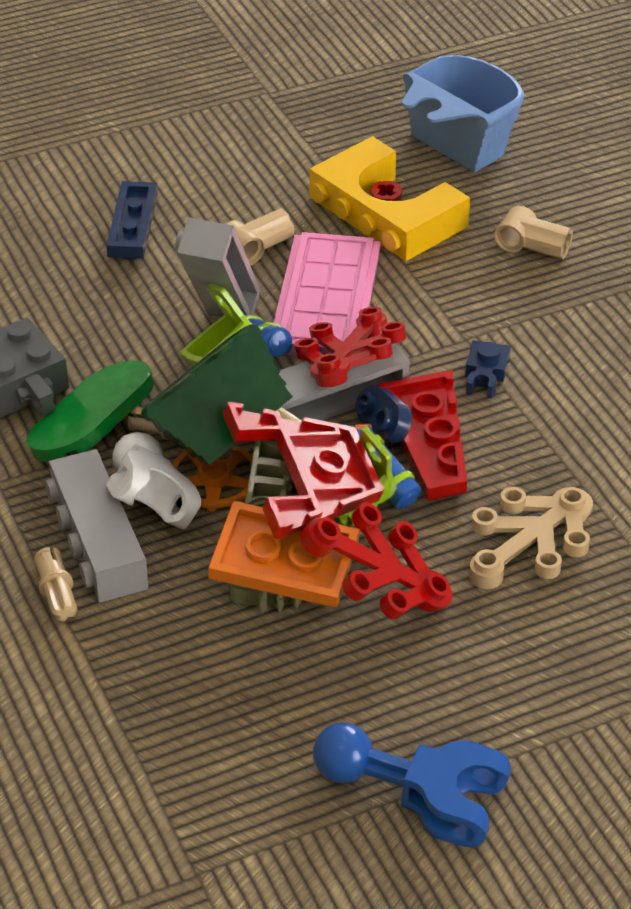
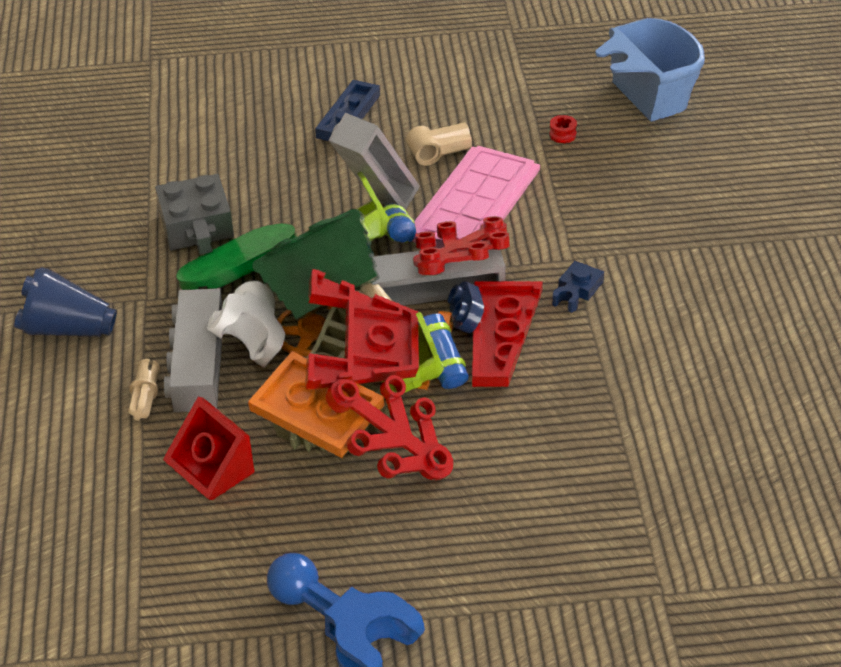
camera: 20 degrees right, 0 degrees up
(175, 633) = (210, 451): none -> red slope
(401, 226) = (560, 154): yellow arch -> none
(523, 230) = (665, 177): tan piece -> none
(566, 506) = (587, 416): tan plant -> none

